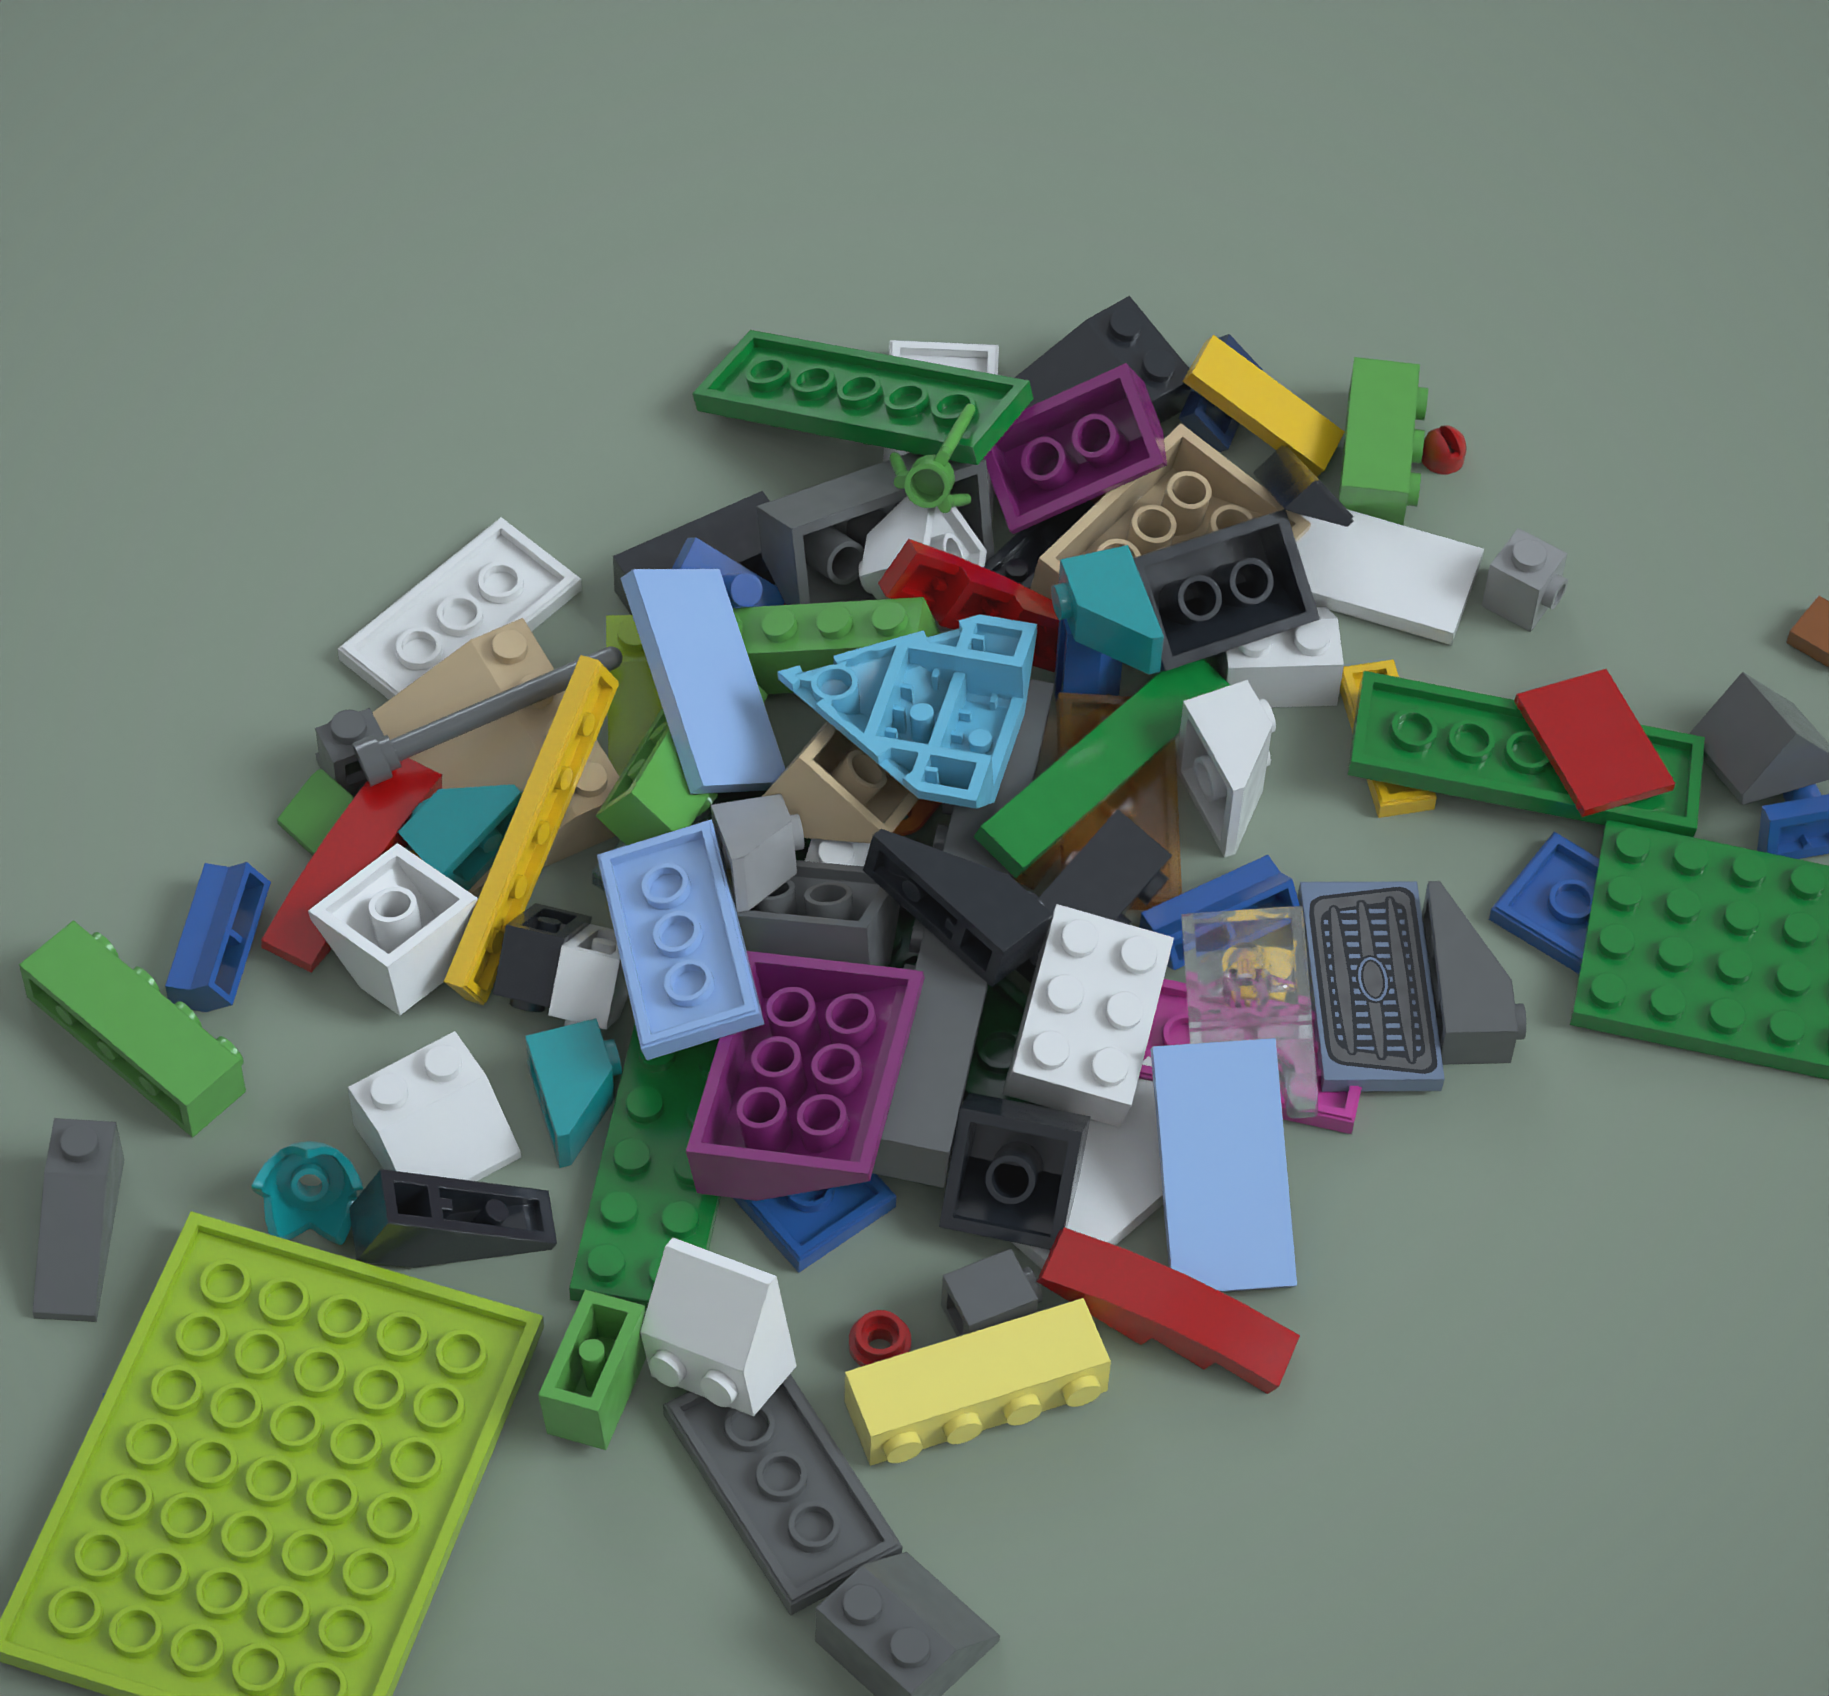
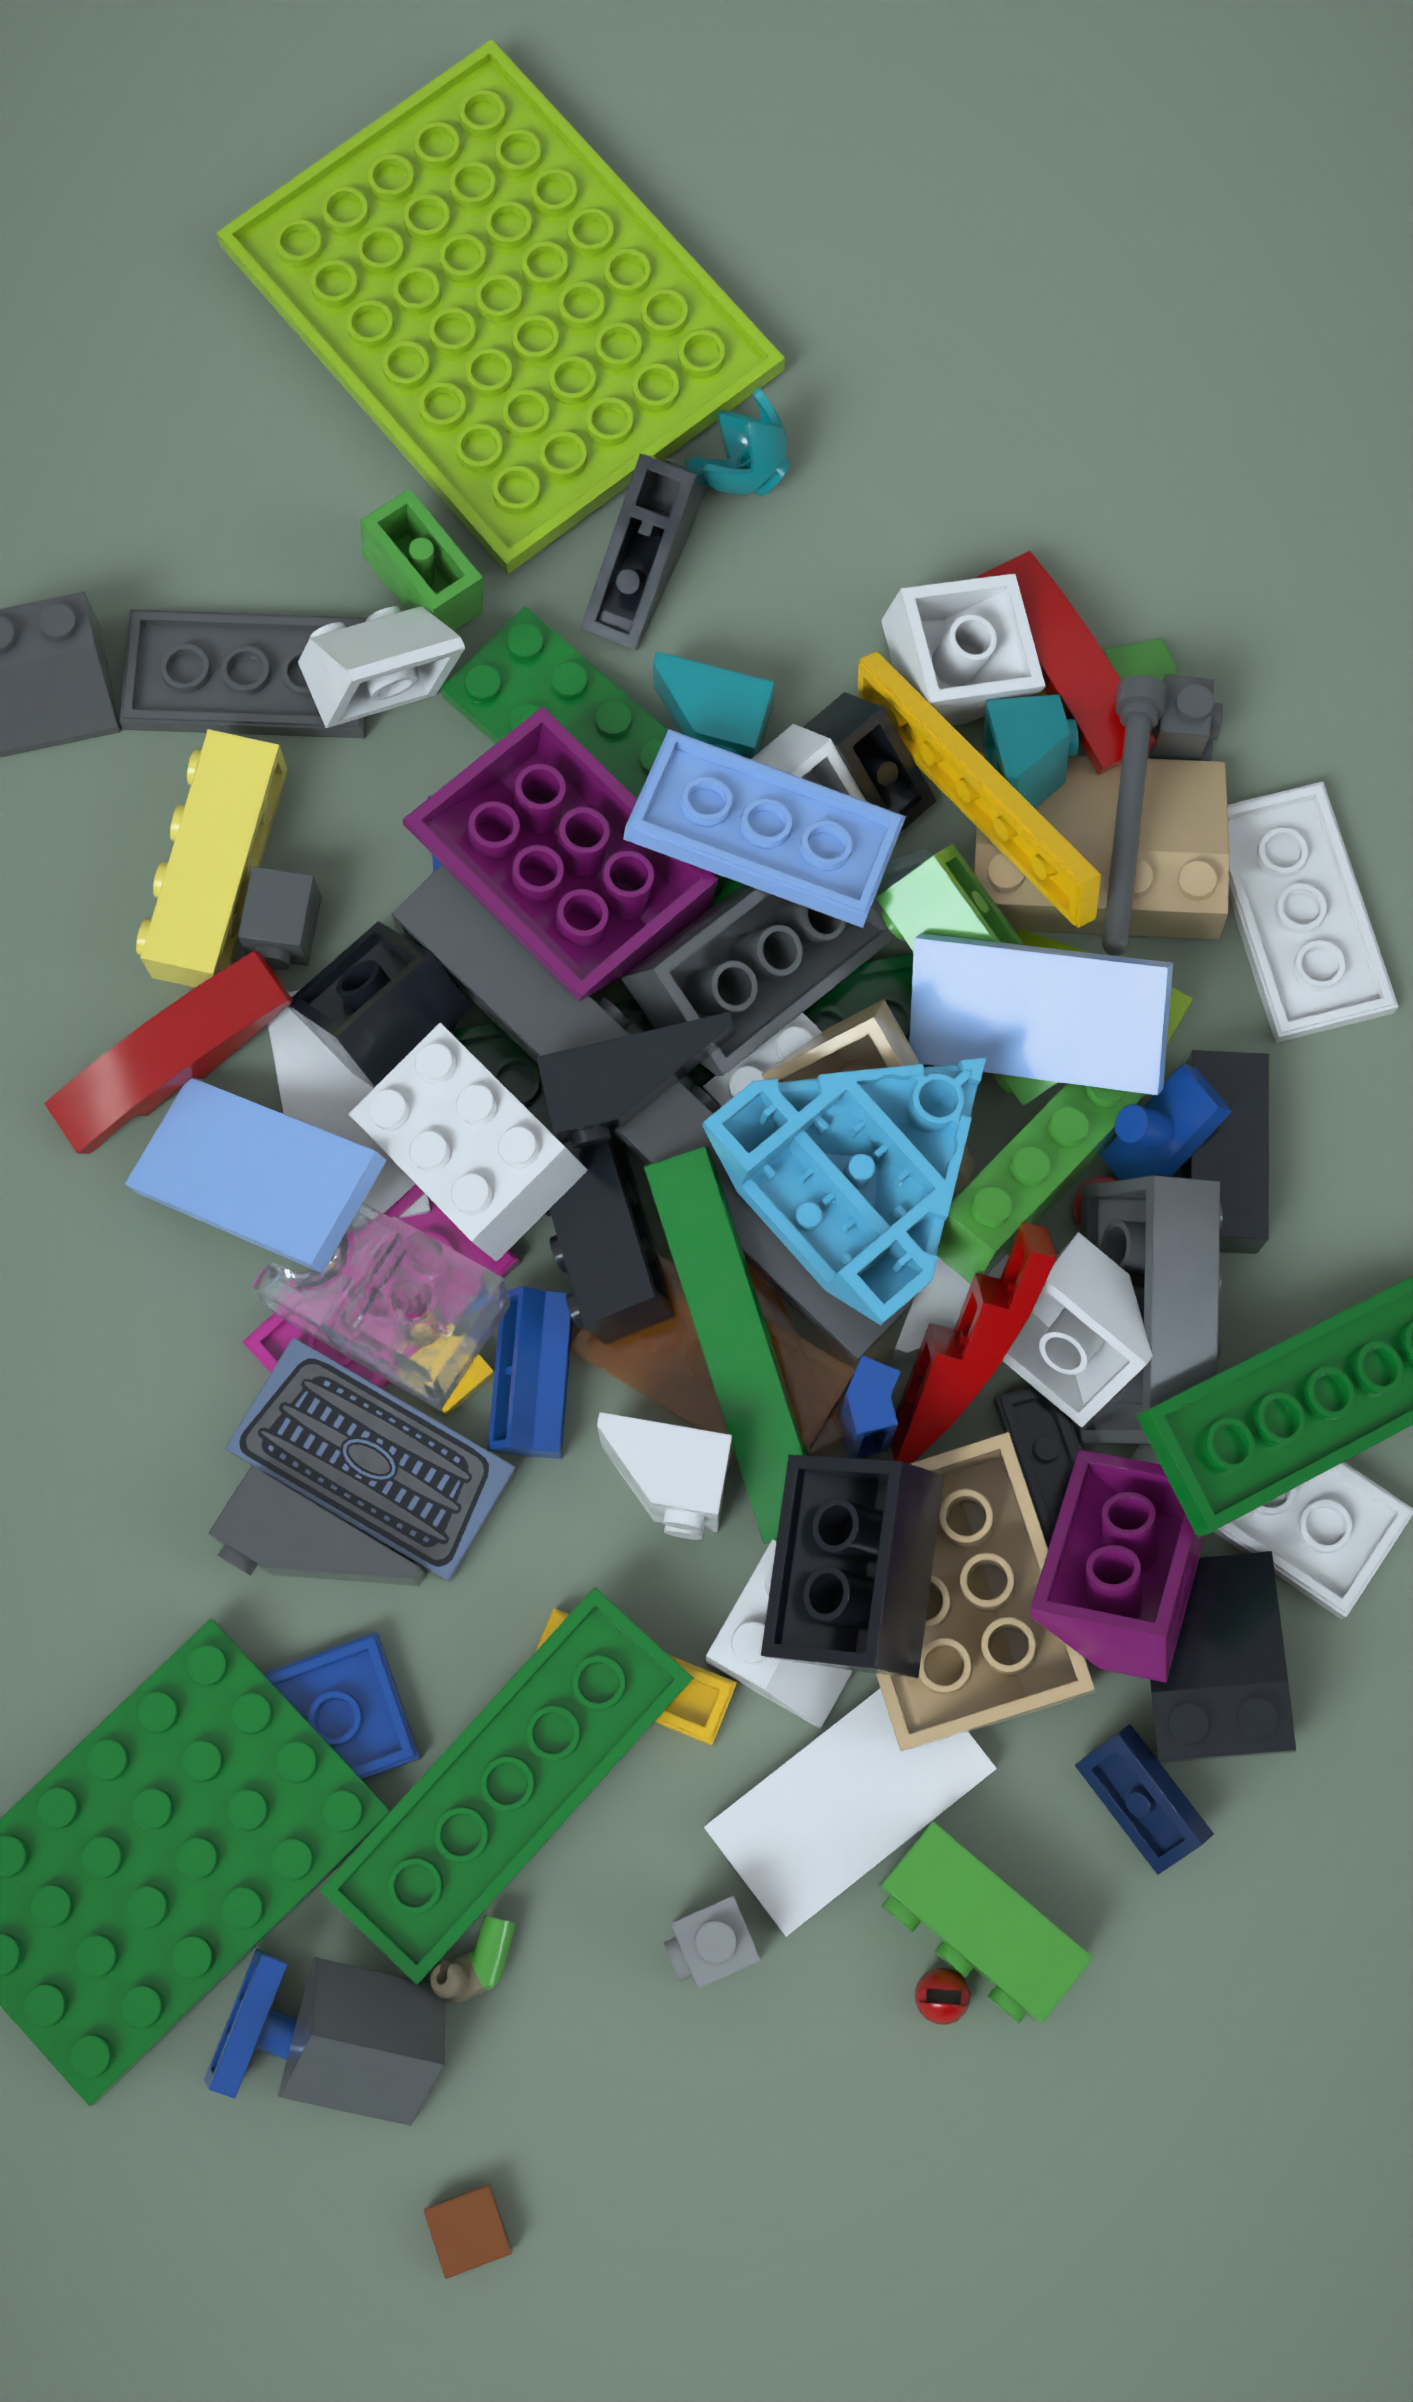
camera: 125 degrees right, 20 degrees up
(77, 1218) = (842, 282): dark grey slope -> none
(134, 1027) = (1001, 407): bright green brick -> none
(217, 936) = (1058, 520): blue piece -> none
(434, 1115) = (751, 585): white slope -> none
(757, 846) = (824, 951): light grey slope -> none
(878, 1325) = (310, 801): red plate -> none
(932, 476) = (1126, 1335): bright green plant -> none
(1109, 607) = (849, 1394): teal slope -> none
(1262, 404) = (1089, 1818): yellow tile -> none
(1300, 489) = (927, 1749): black slope -> none
(1594, 742) = (472, 1855): red piece -> none
(1666, 715) = (478, 1969): none -> arm

